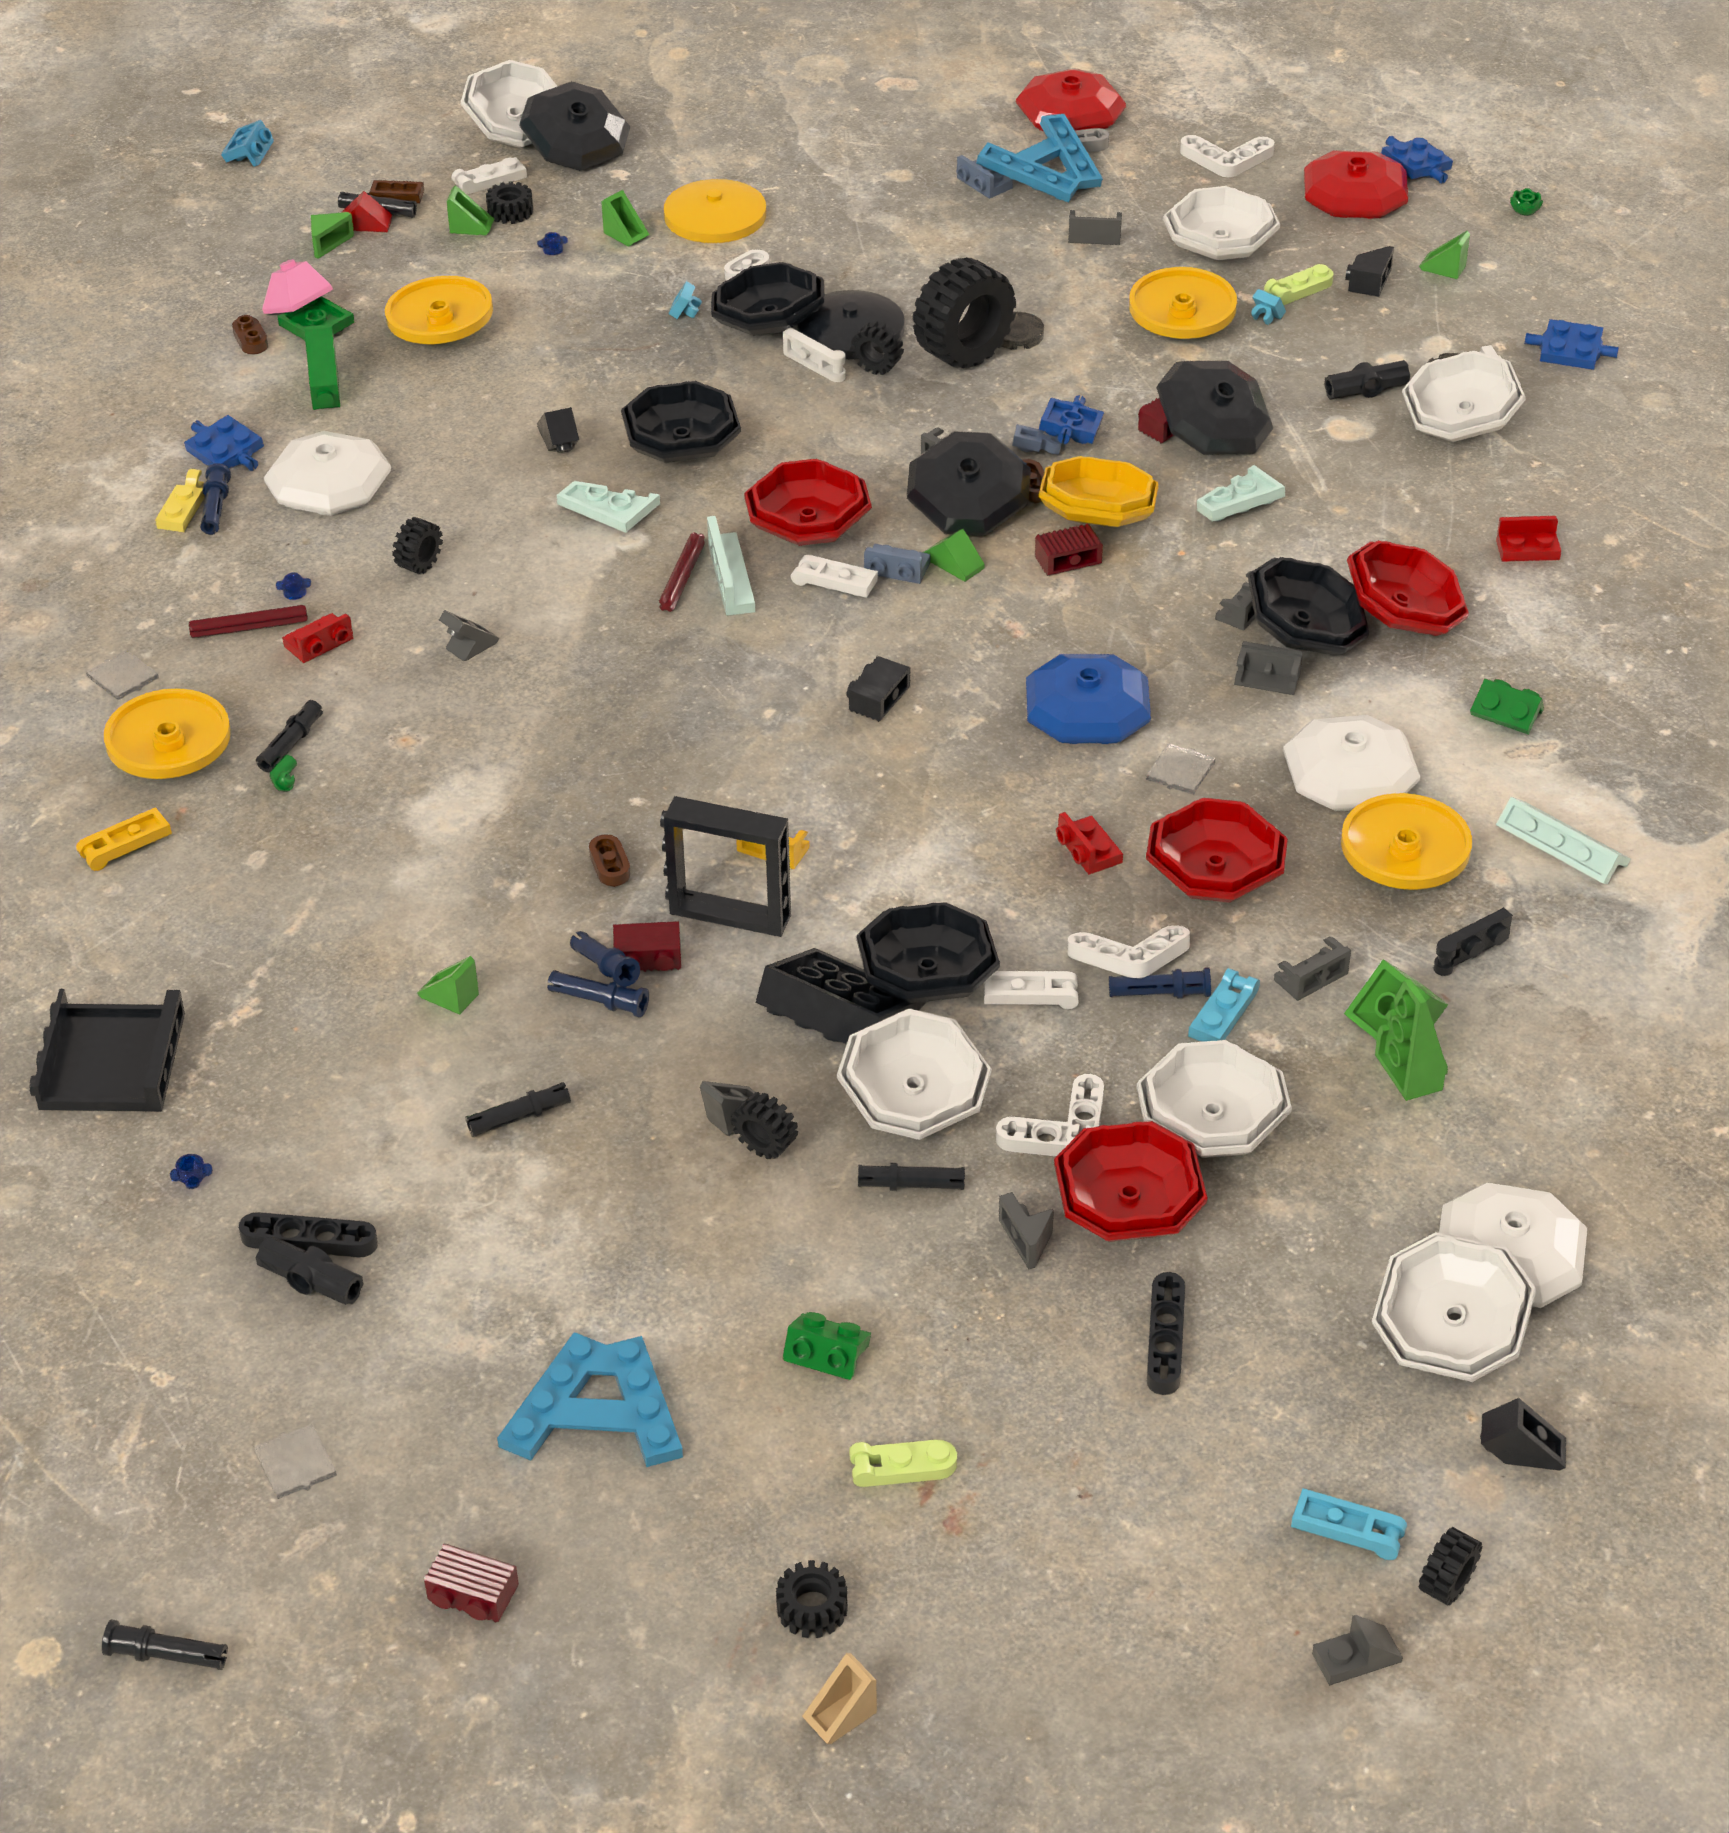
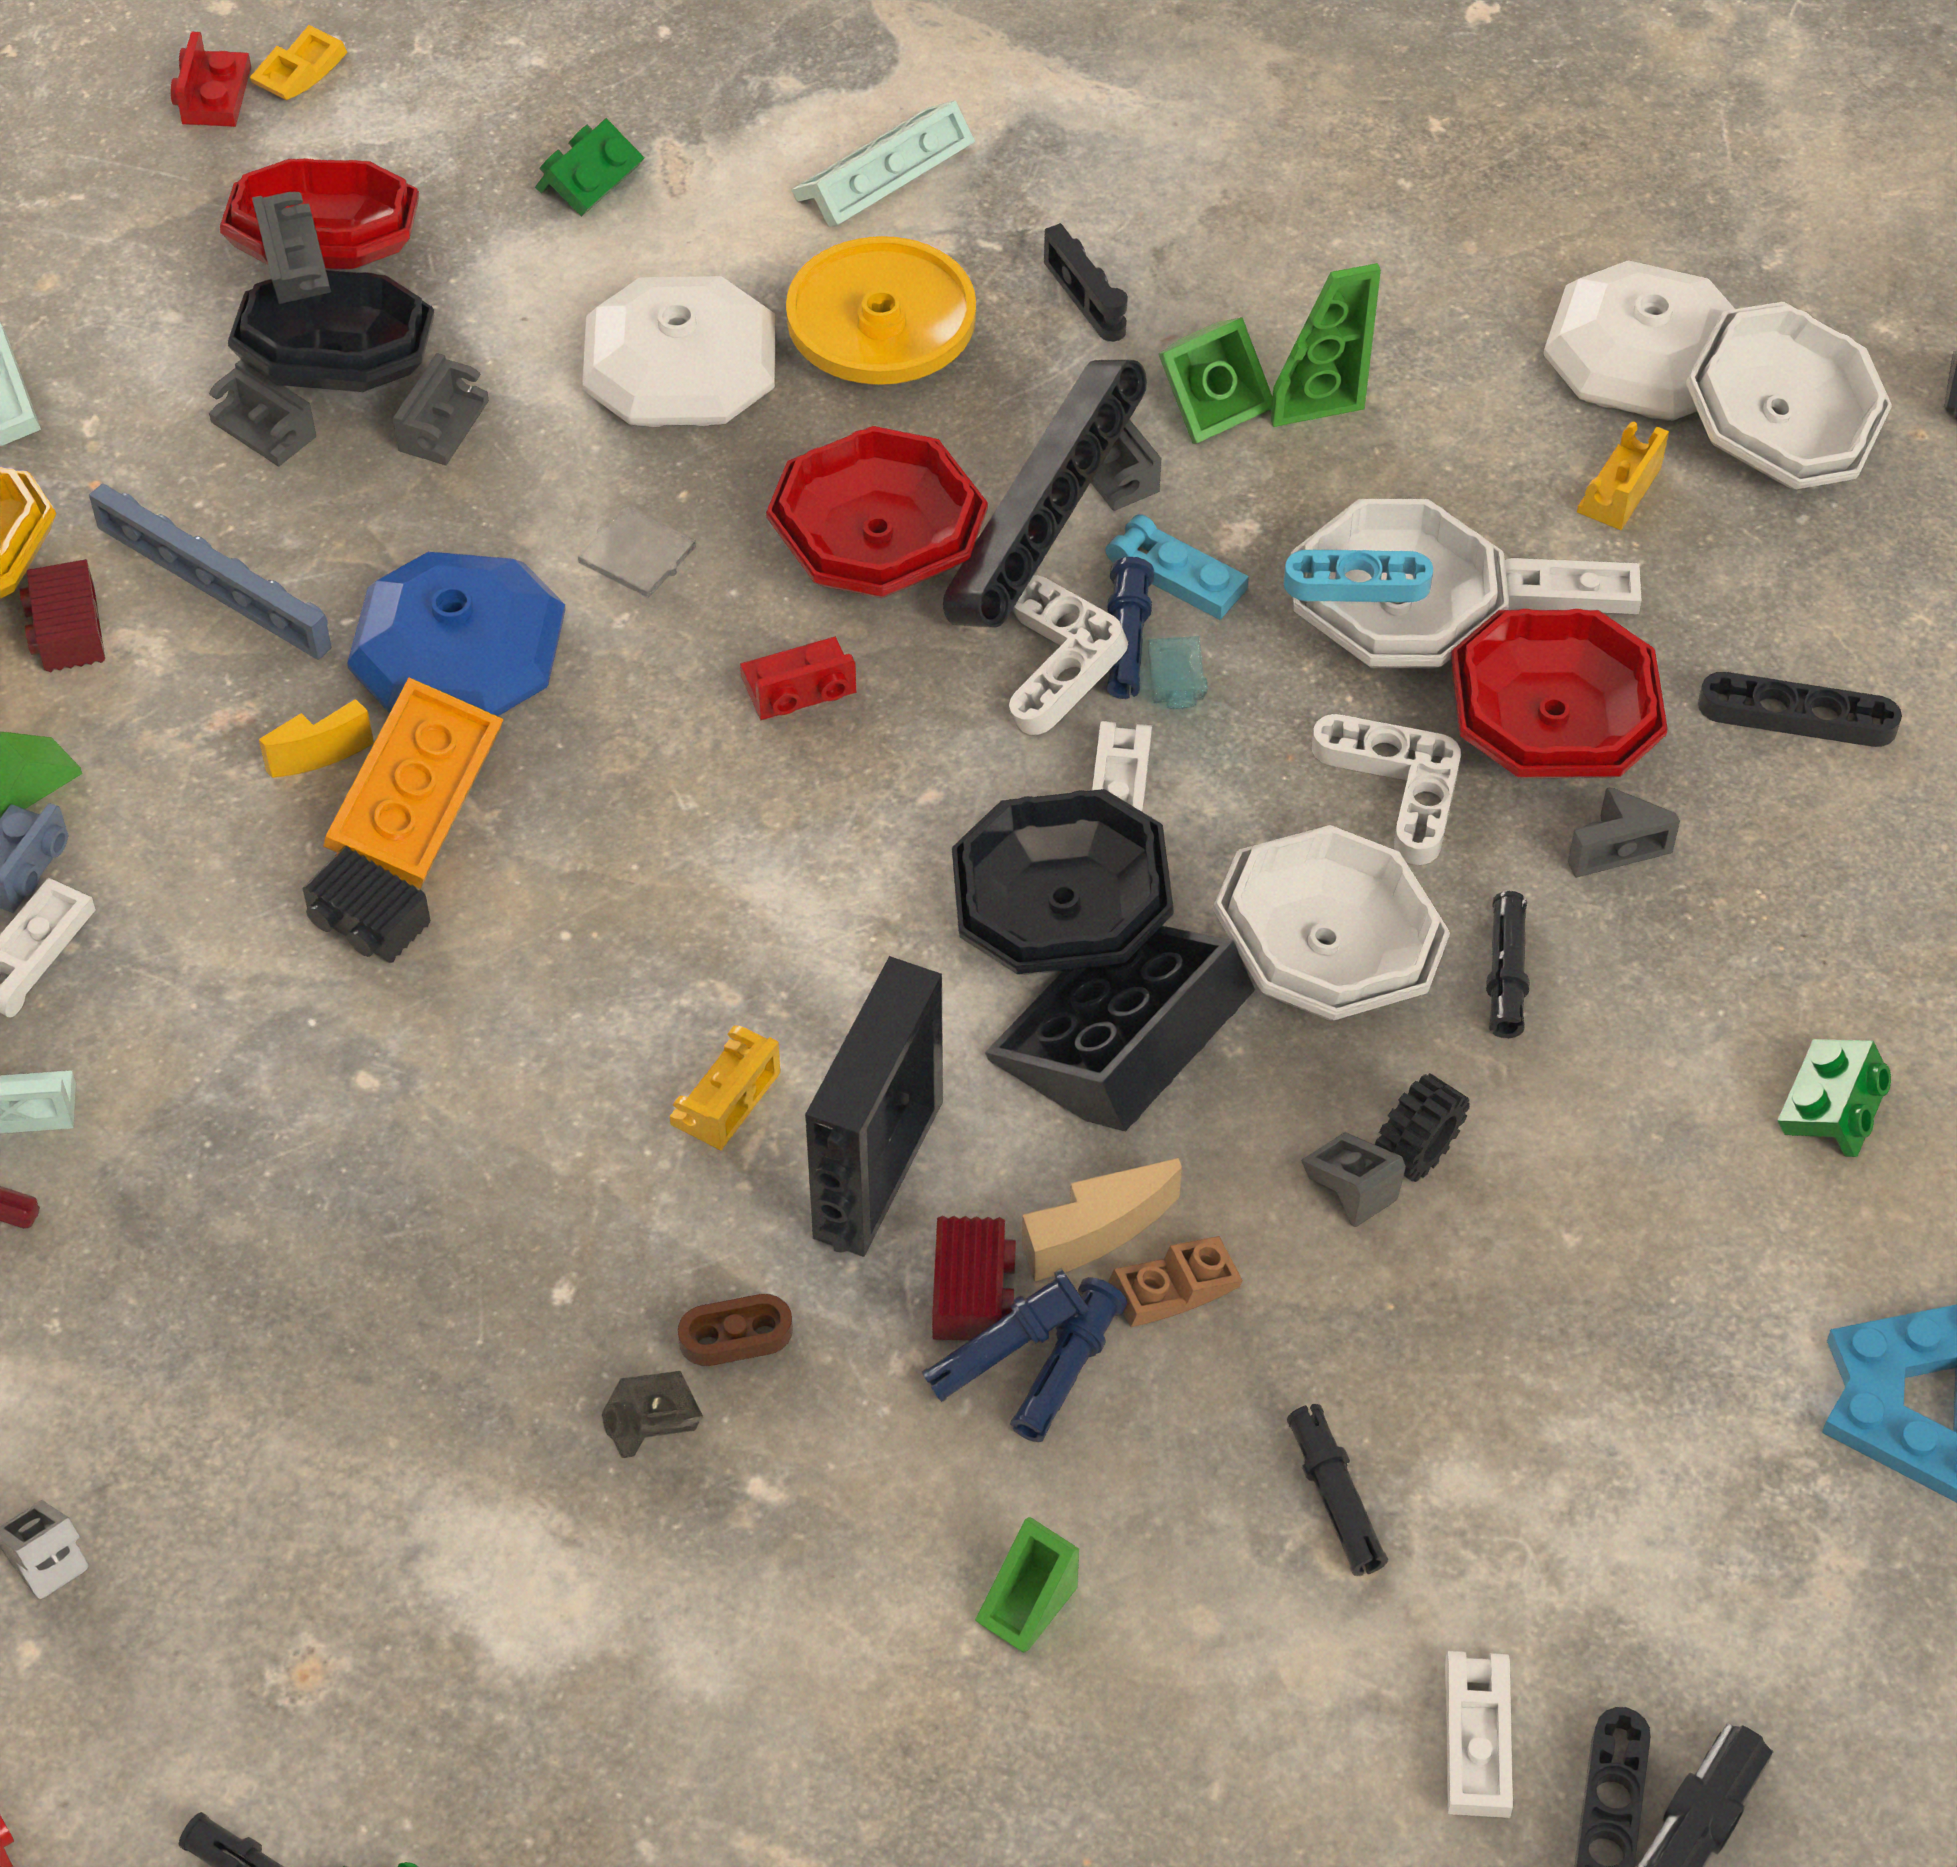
camera: 85 degrees left, 10 degrees up
(363, 1174) = (1479, 1736): none -> white plate
(556, 832) = (649, 1408): none -> clear smoke bracket
(656, 1036) = (1182, 1281): none -> medium nougat slope
(693, 996) = (1099, 1217): none -> tan slope
(967, 691) = (414, 781): none -> light orange plate
(994, 656) = (305, 747): none -> yellow slope
(1114, 596) = (211, 571): none -> sand blue plate
(1123, 1007) = (1177, 671): none -> clear light blue bracket
(1189, 1071) = (1393, 589): none -> medium azure beam
(1251, 1205) = (1573, 585): none -> white plate
(1264, 915) = (1044, 493): none -> black beam
(1341, 559) = (291, 247): none -> dark grey hinge
(1362, 1235) = (1624, 478): none -> yellow hinge
(1555, 573) = (301, 66): none -> yellow slope

